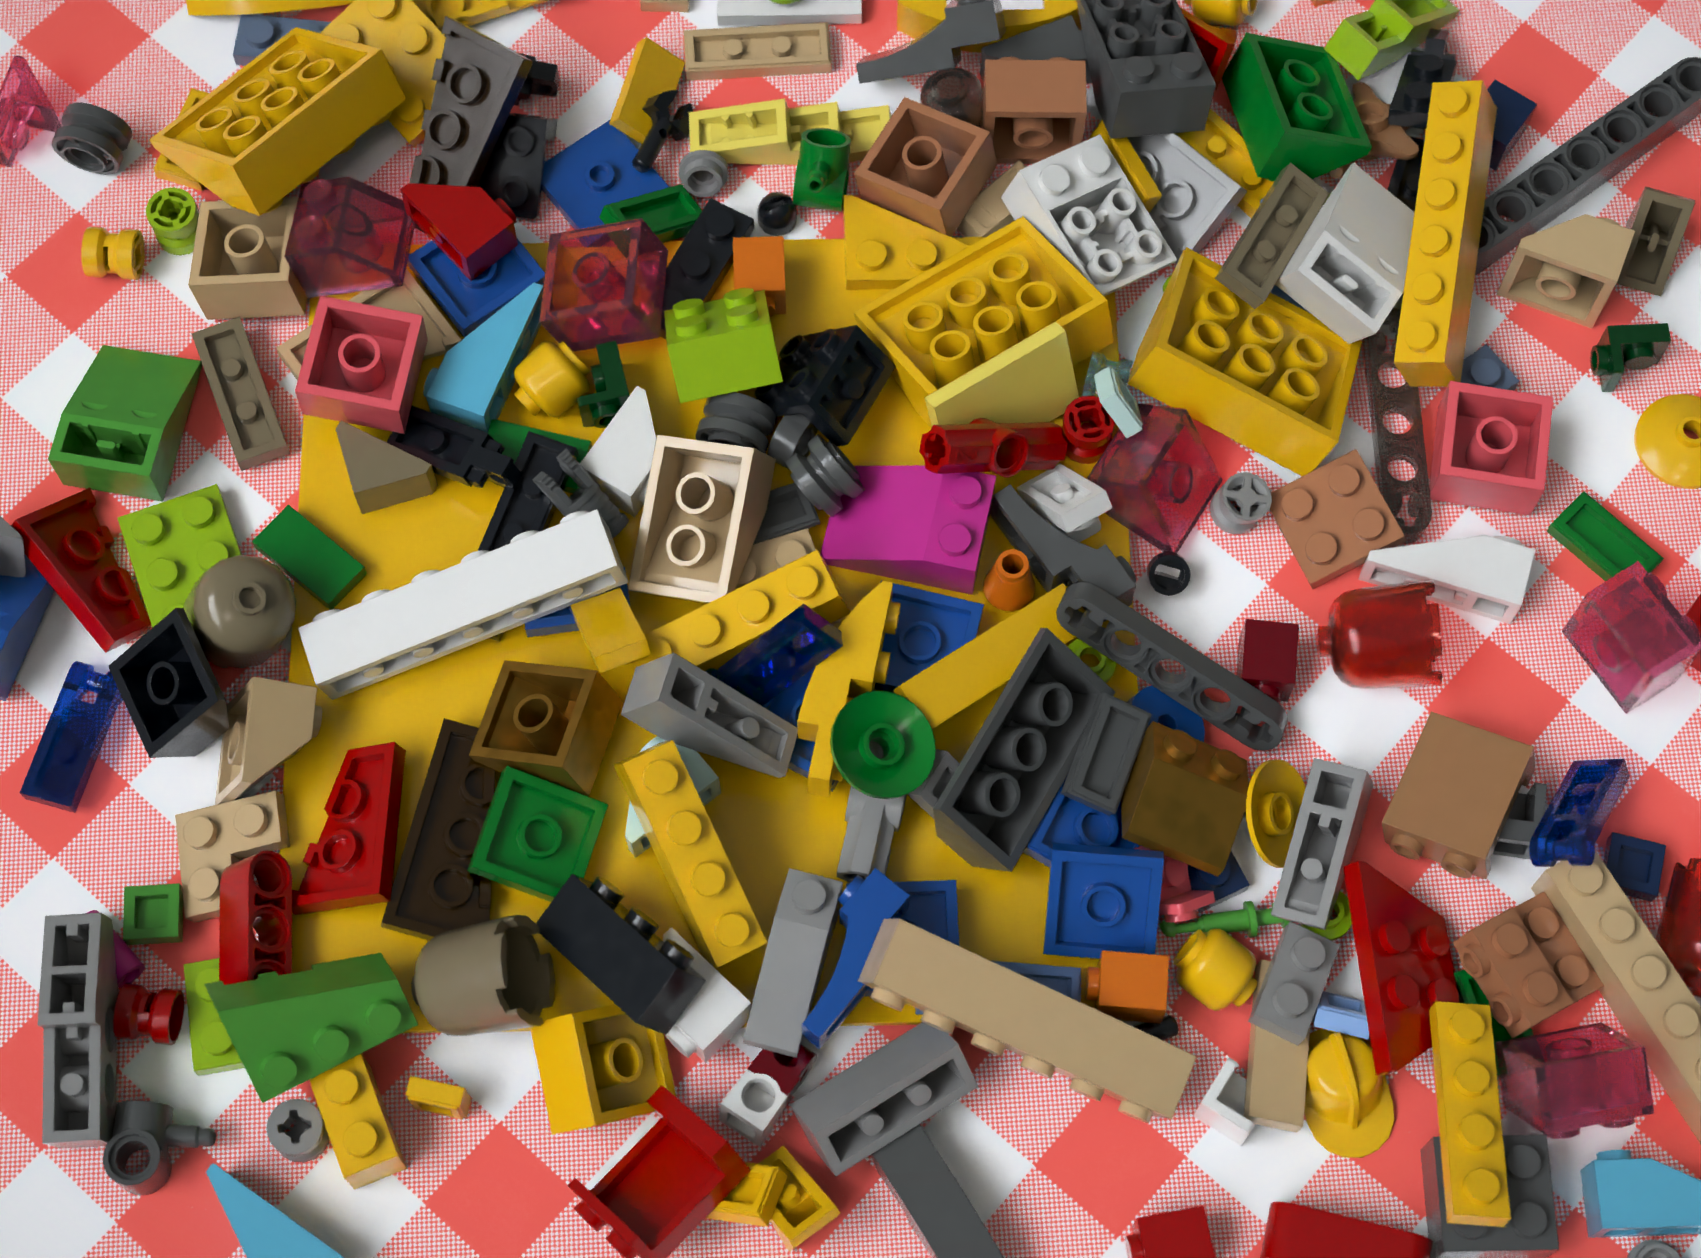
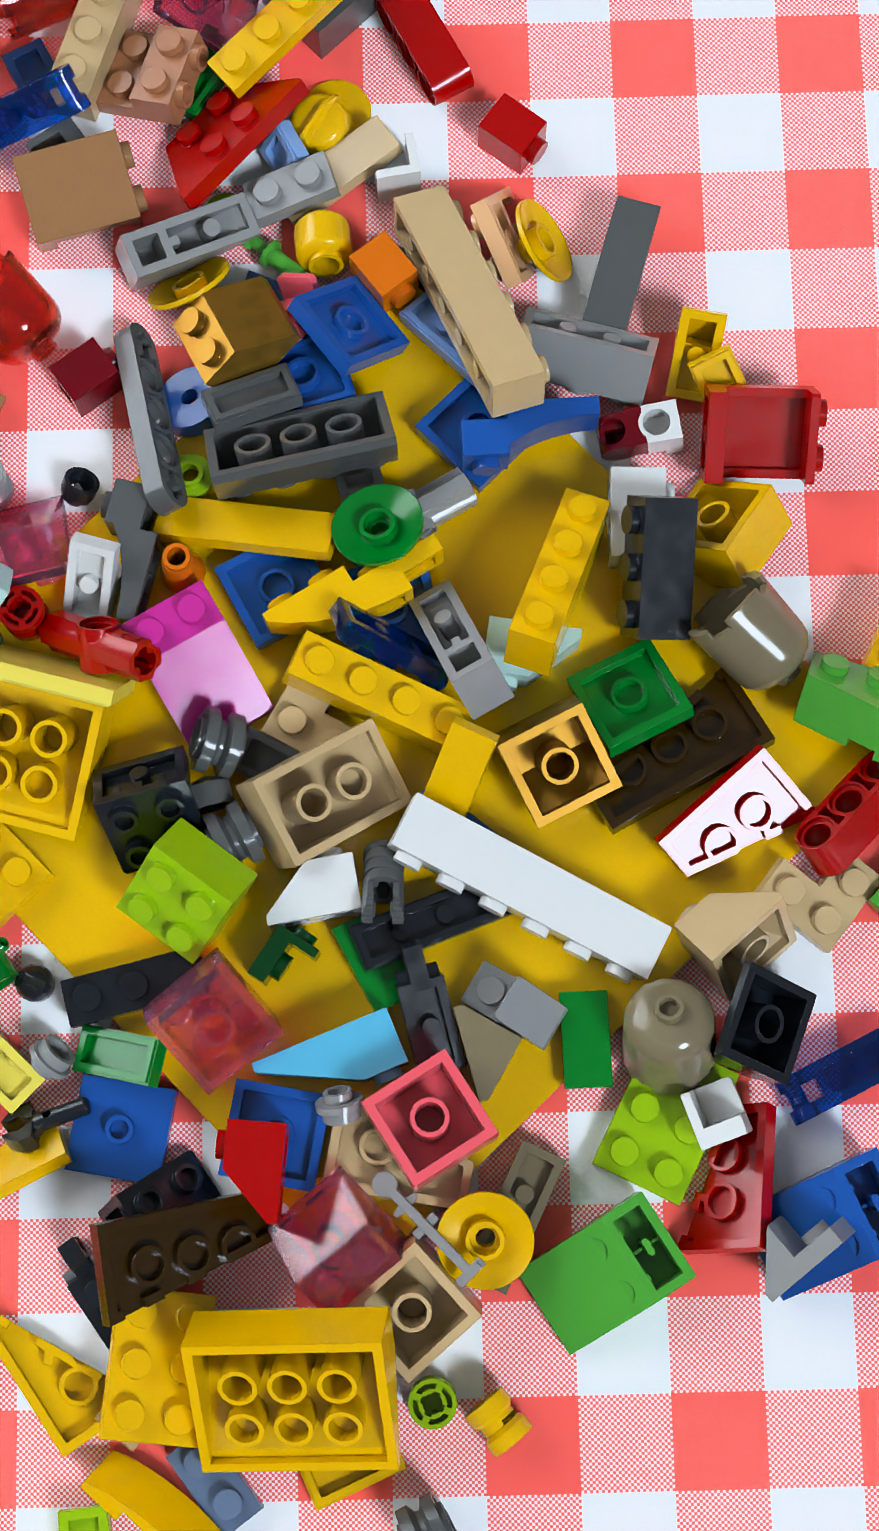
camera: 130 degrees left, 10 degrees up
(144, 586) = (716, 1113): none -> white panel
(239, 340) = (504, 1256): none -> yellow dish
(293, 305) = (386, 1185): none -> light grey piece
(388, 523) = (514, 1004): none -> light grey slope
(438, 1097) = (835, 613): yellow tile -> none
(445, 319) = (339, 1105): none -> light grey plate
(551, 379) = (311, 998): yellow head -> none
(761, 266) = (102, 932): orange brick -> none
(793, 962) = (542, 476): light grey slope -> none
(1032, 1164) = (542, 241): none -> yellow dish
(1072, 1133) = (501, 236): none -> light nougat wing

